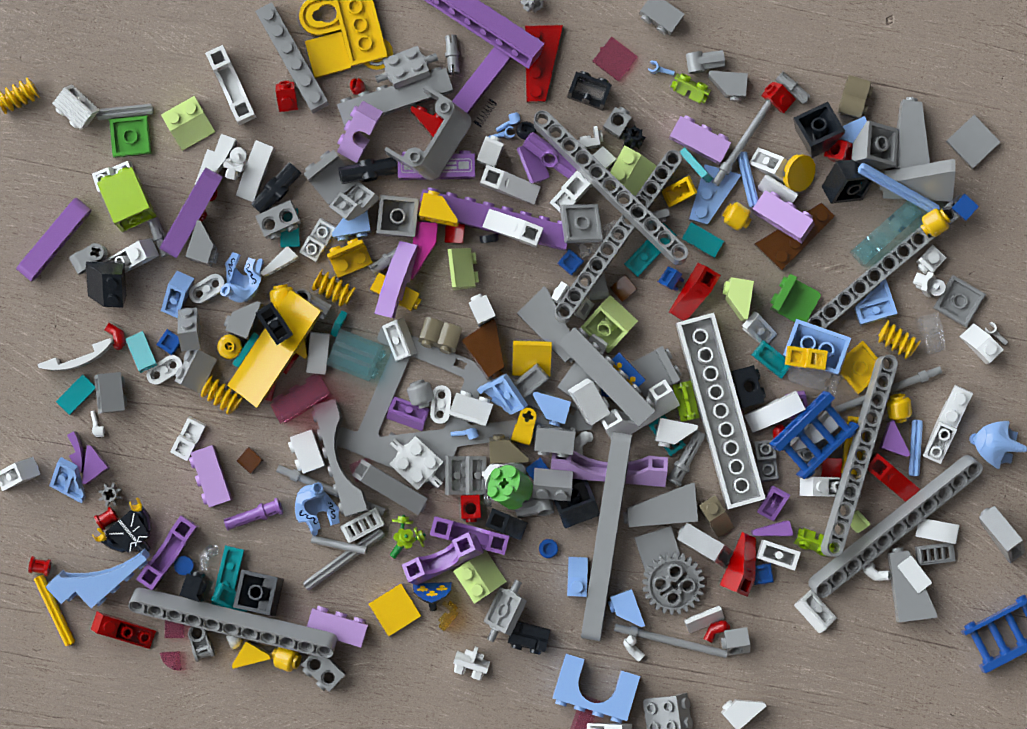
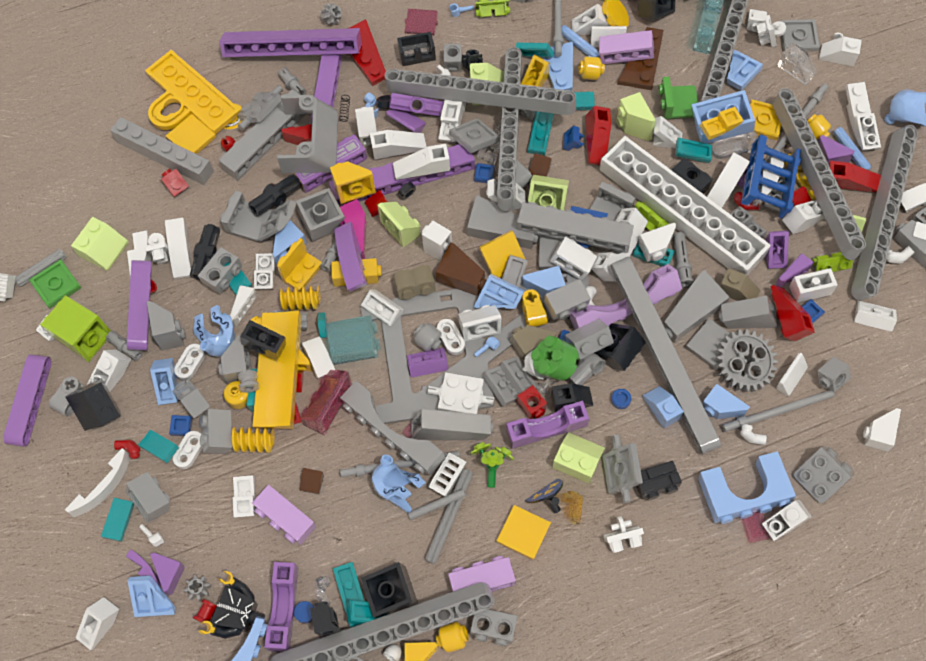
camera: 30 degrees left, 20 degrees down
(231, 85) = (107, 188): white arch -> none
(243, 346) = (248, 381): none -> light grey wheel
(262, 512) = (349, 518): medium lavender pin -> none
(307, 452) = (358, 442): white brick -> none
(353, 142) = (246, 149): lavender arch -> none
(456, 553) = (548, 440): medium lavender arch -> none
(700, 139) = (524, 31): lavender brick -> none
(714, 628) = (806, 378): red arm -> none
(898, 340) = (777, 81): yellow piece -> none

